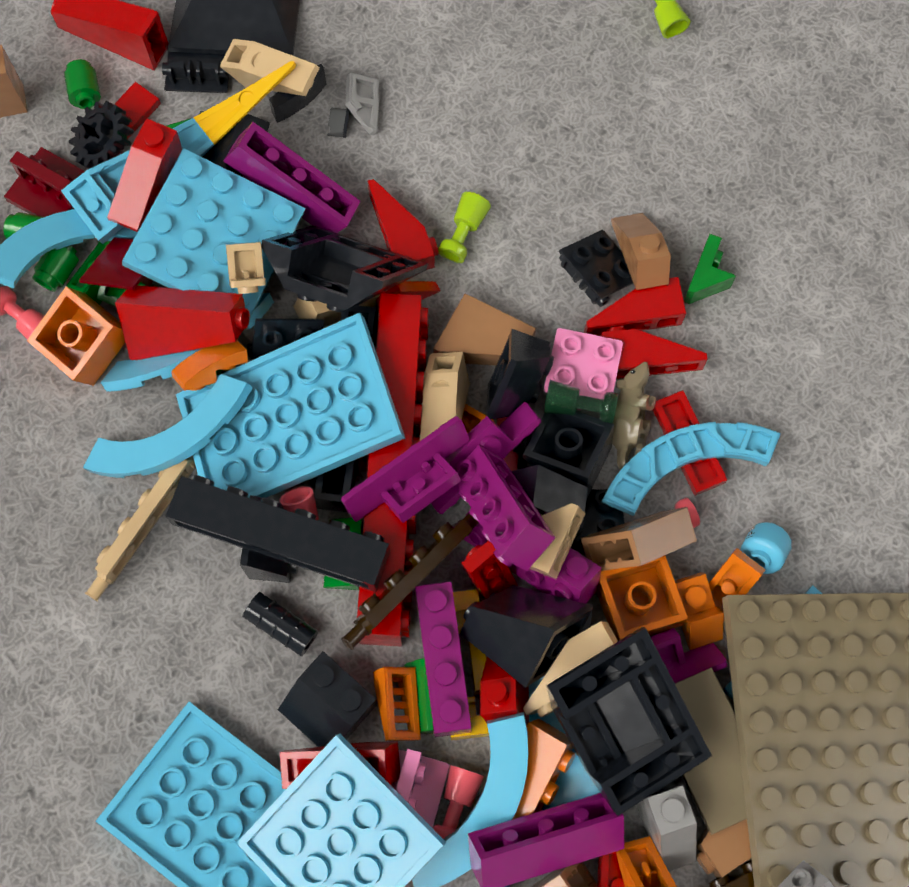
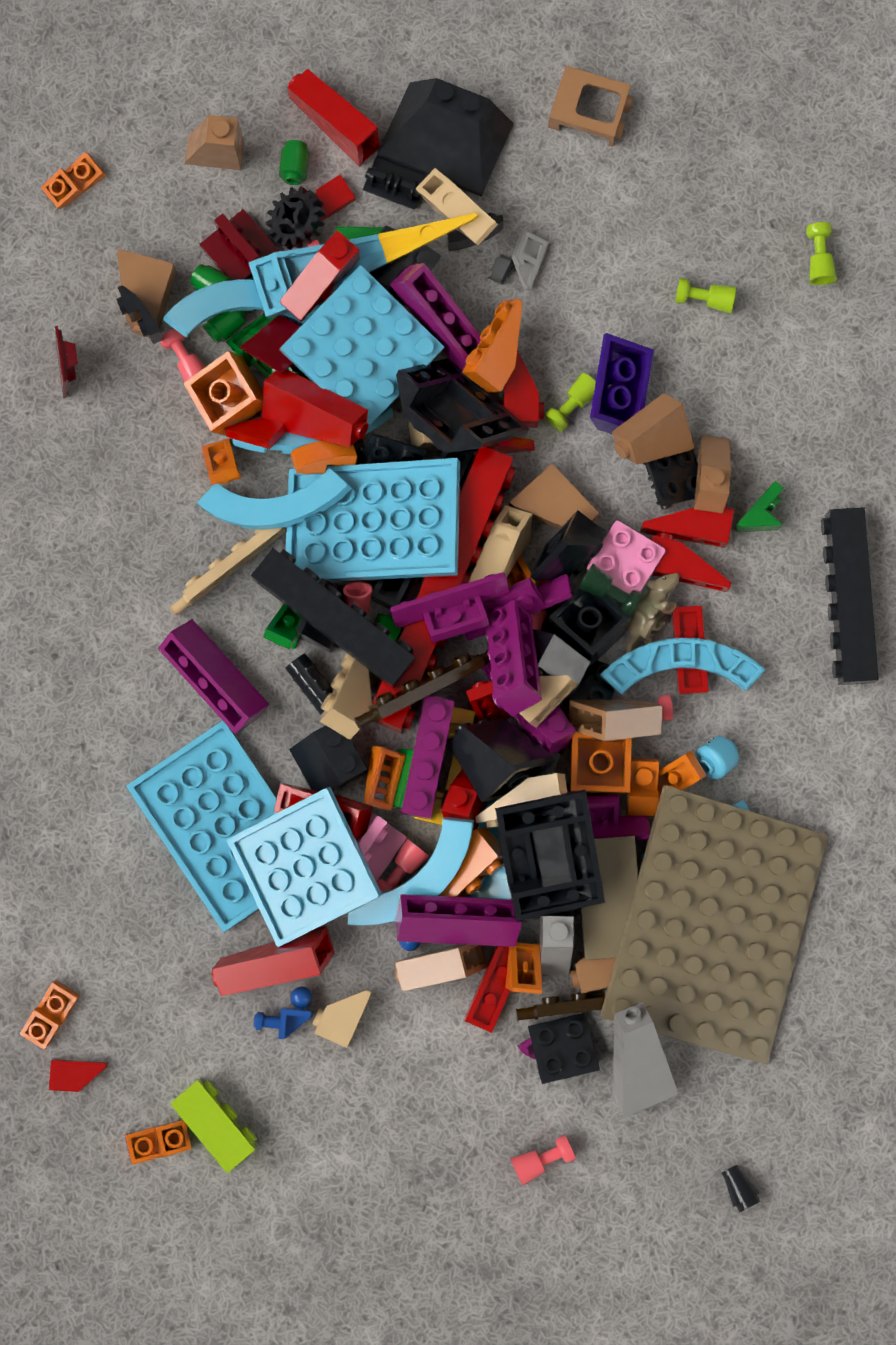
camera: 20 degrees right, 10 degrees up
(98, 415) = (221, 462): none -> orange slope
(126, 366) = (257, 432): none -> red tile
(161, 654) = (213, 676): none -> magenta brick
(225, 571) = (283, 628): none -> green slope
(245, 267) = (377, 387): tan bracket -> none
(328, 621) = (349, 698): none -> tan slope
(364, 197) = (497, 351): none -> orange slope
(510, 191) = (620, 382): none -> dark purple slope
(564, 222) = (654, 432): none -> medium nougat slope
(575, 77) = (717, 297): none -> lime piece
(837, 329) = (850, 595): none -> black brick

